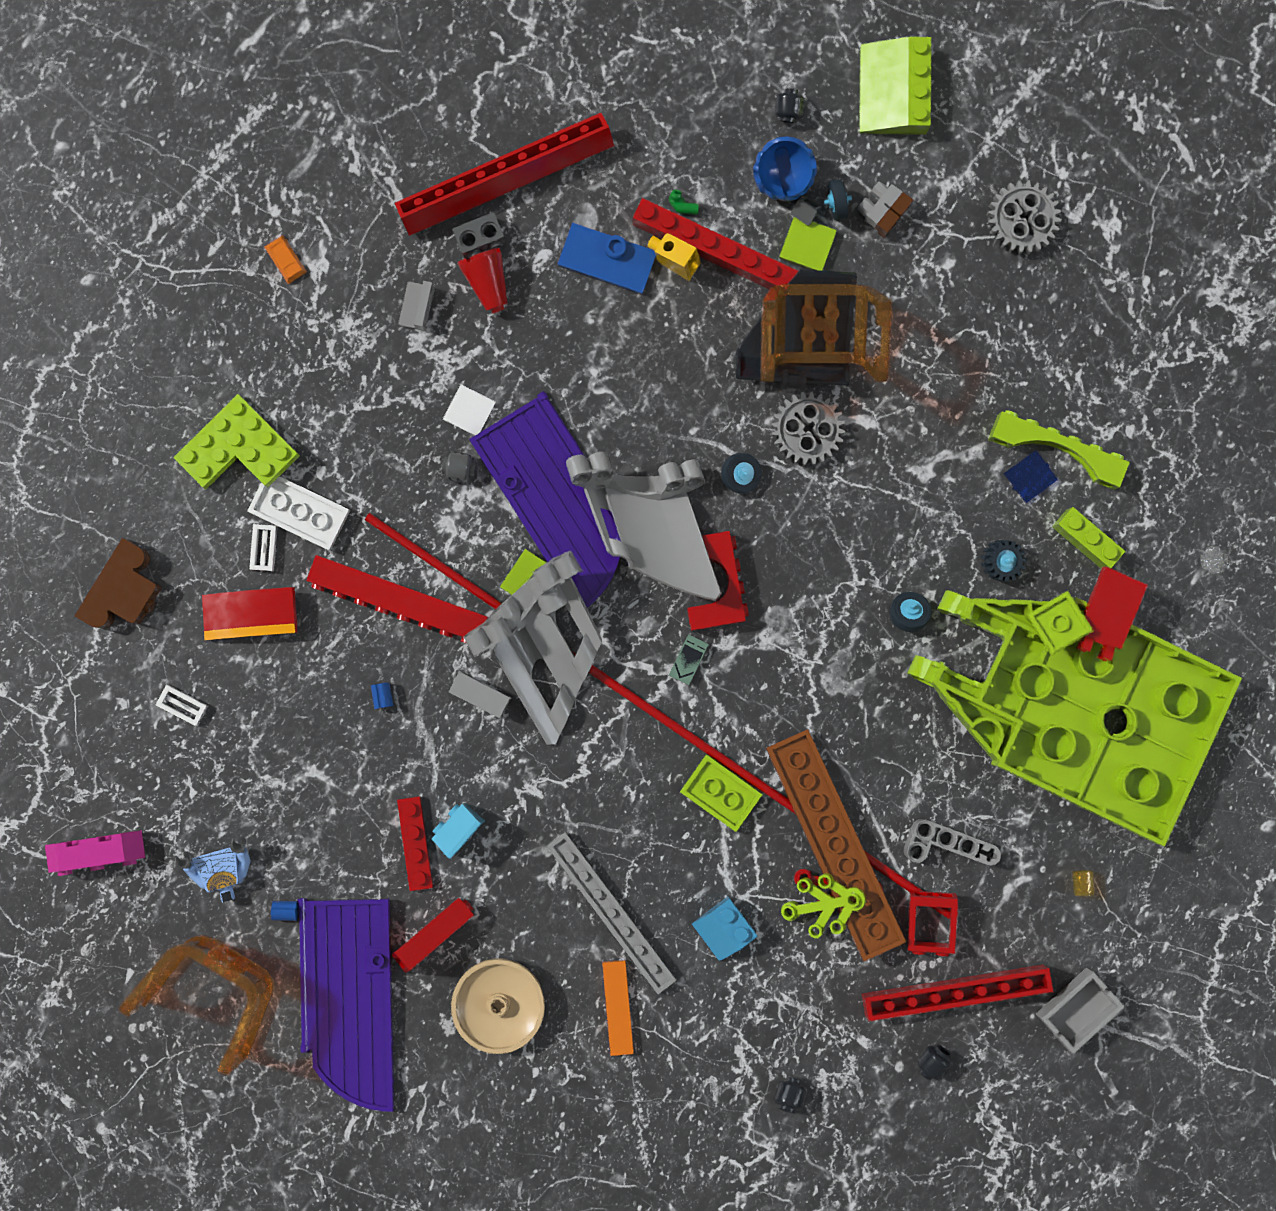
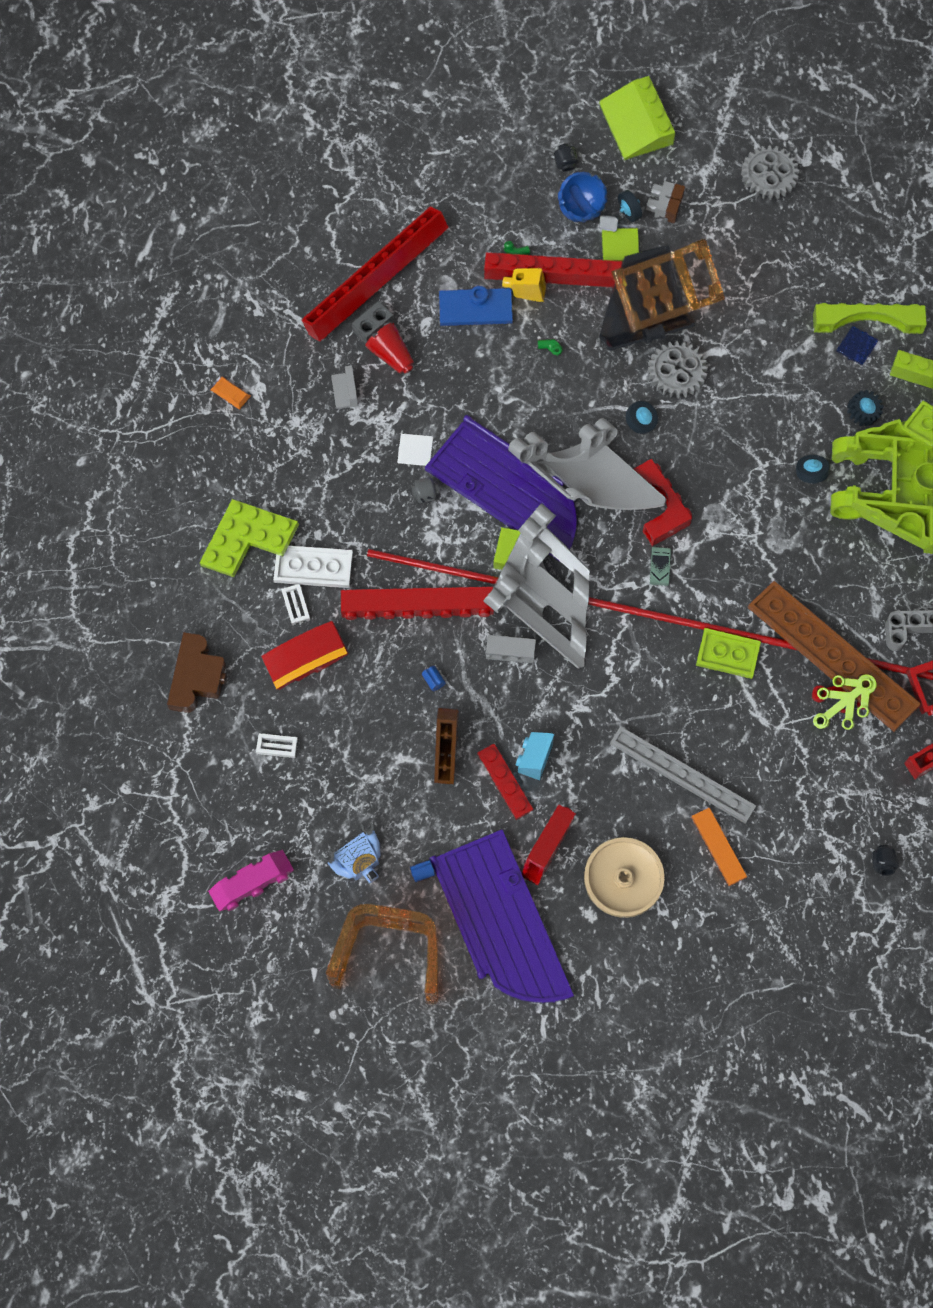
camera: 20 degrees left, 15 degrees down
(360, 783) = (446, 745): none -> reddish brown brick
(676, 342) = (552, 345): none -> green arm
(724, 929) = (776, 753): dark azure slope -> none

